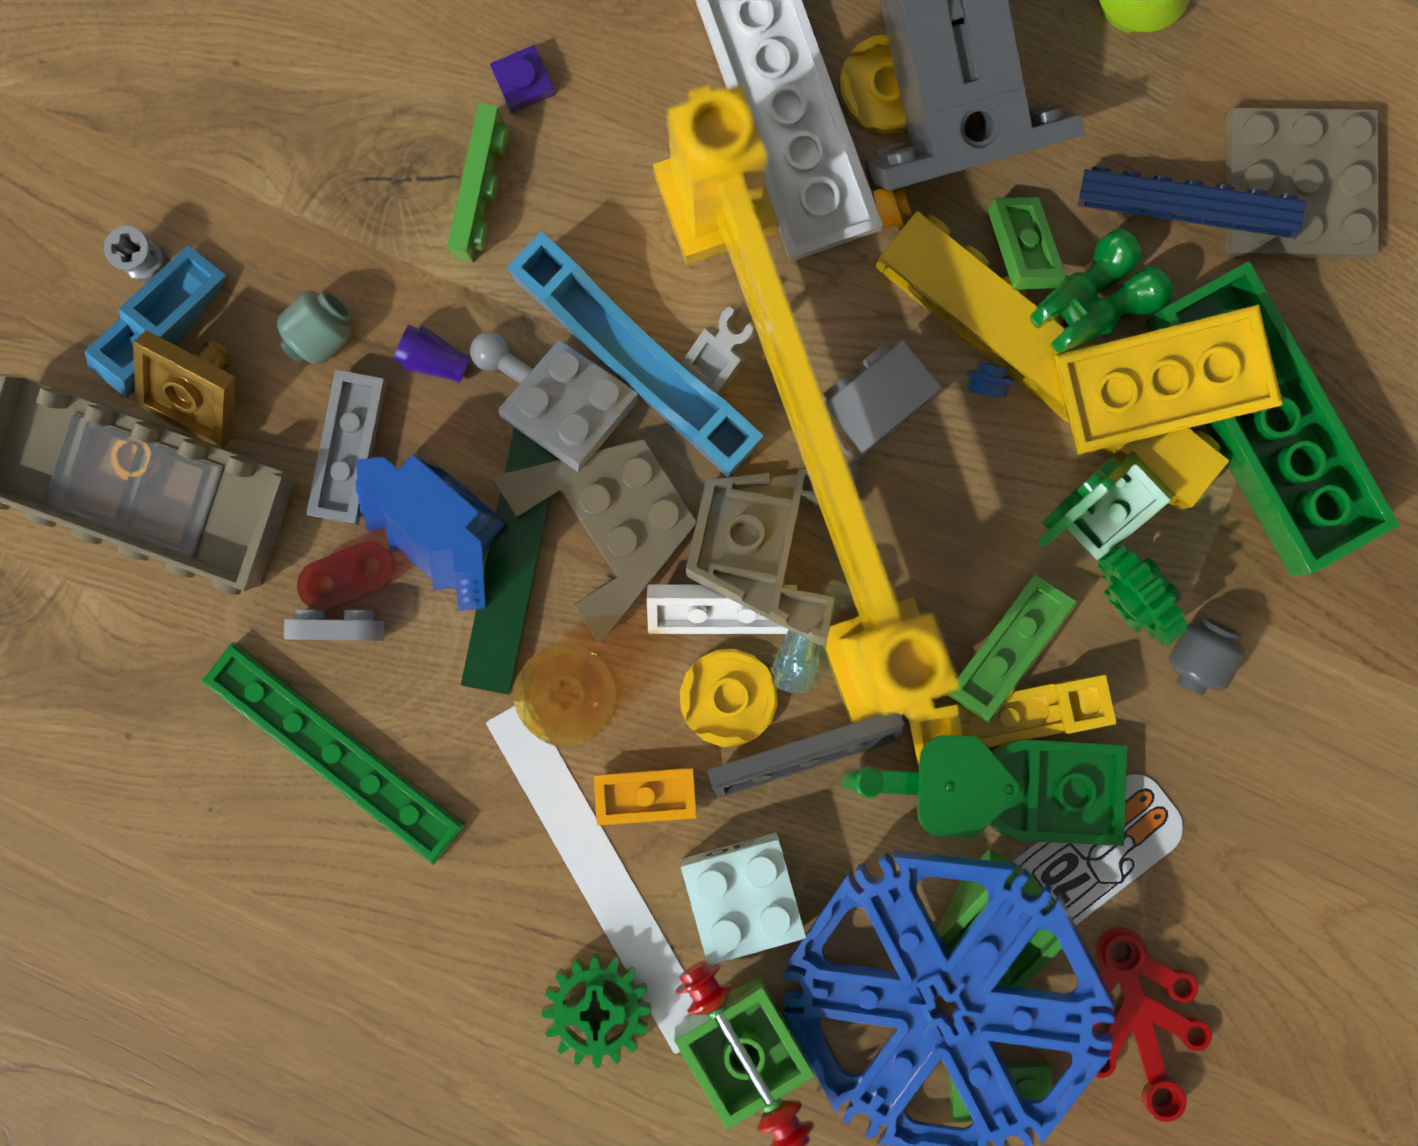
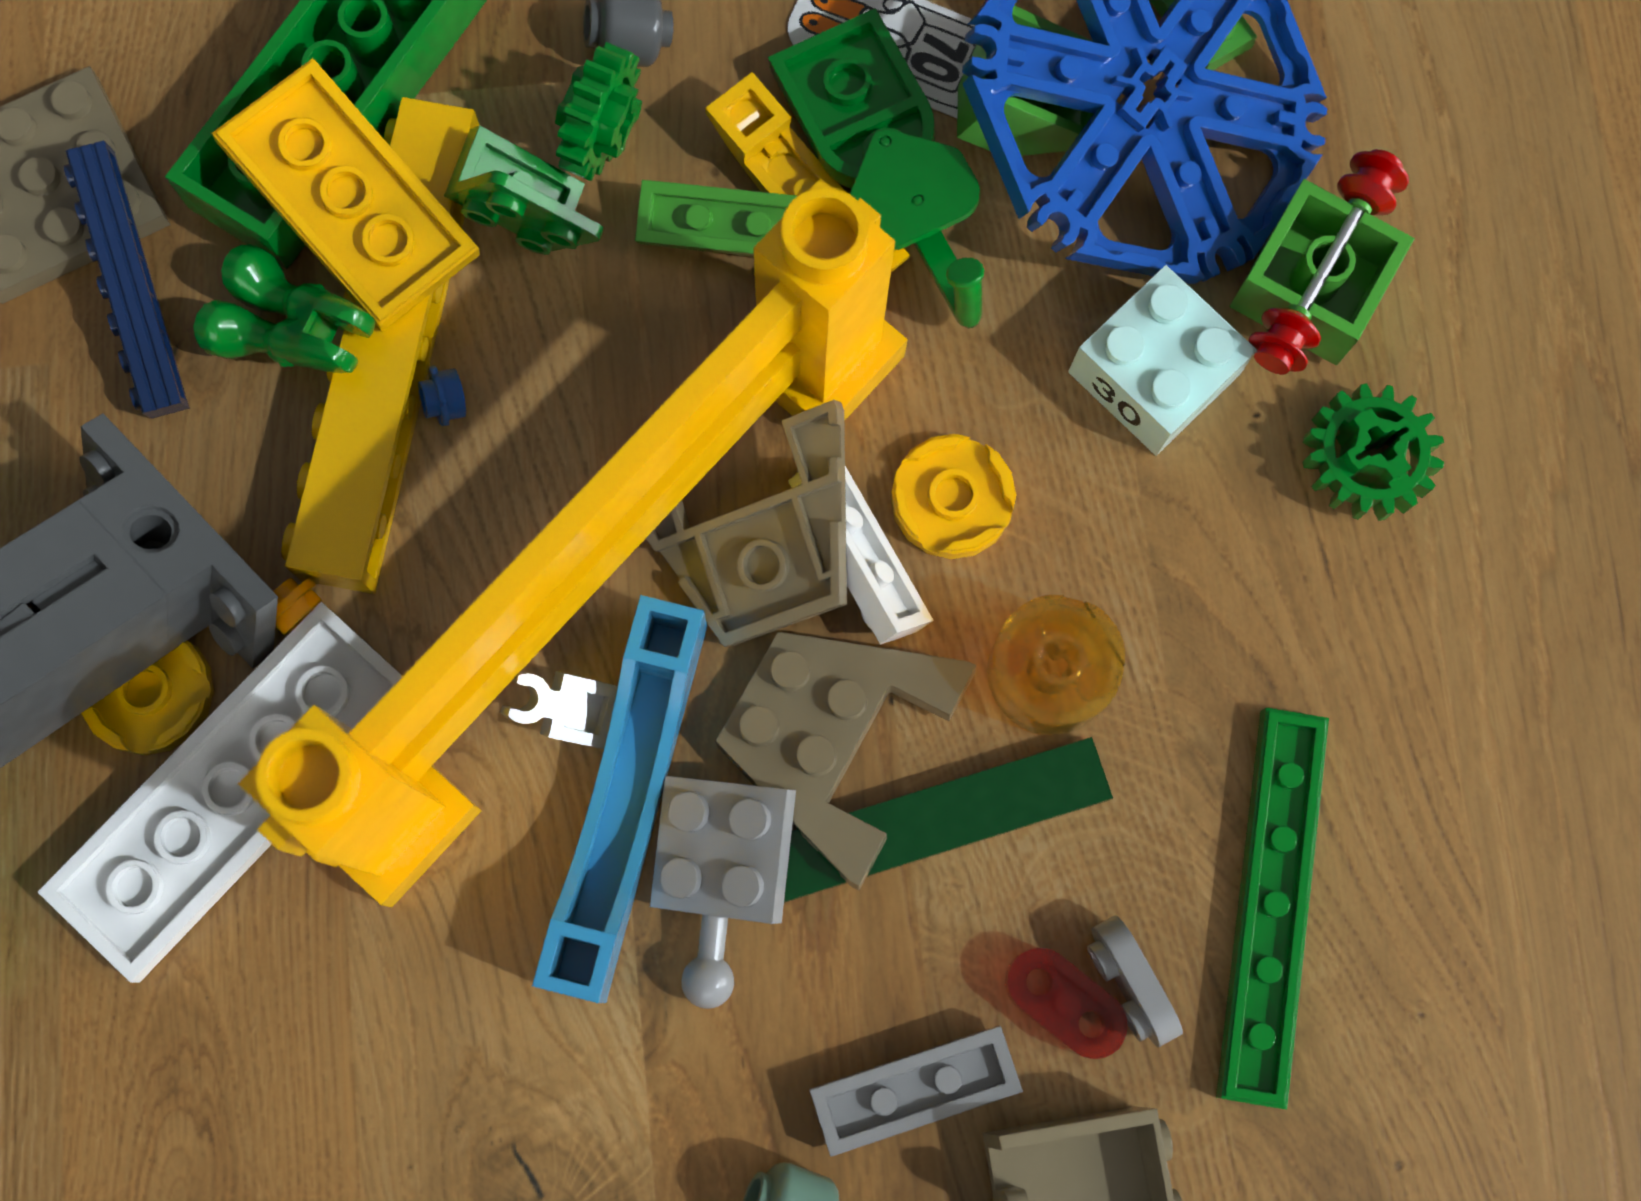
camera: 120 degrees left, 10 degrees down
(430, 355) = (750, 1051): dark purple cone -> none
(430, 522) = (951, 924): blue slope -> none
(478, 183) = (509, 1108): bright green plate -> none
(522, 79) = (350, 1132): dark purple plate -> none
(595, 868) = (1219, 545): white sticker -> none
(645, 796) = (1114, 525): light orange plate -> none
(796, 664) = (878, 437): clear light blue cone -> none
(806, 754) = (974, 381): dark grey tile -> none
(879, 400) = (515, 483): light grey brick -> none
(1026, 243) = (262, 431): bright green plate -> none

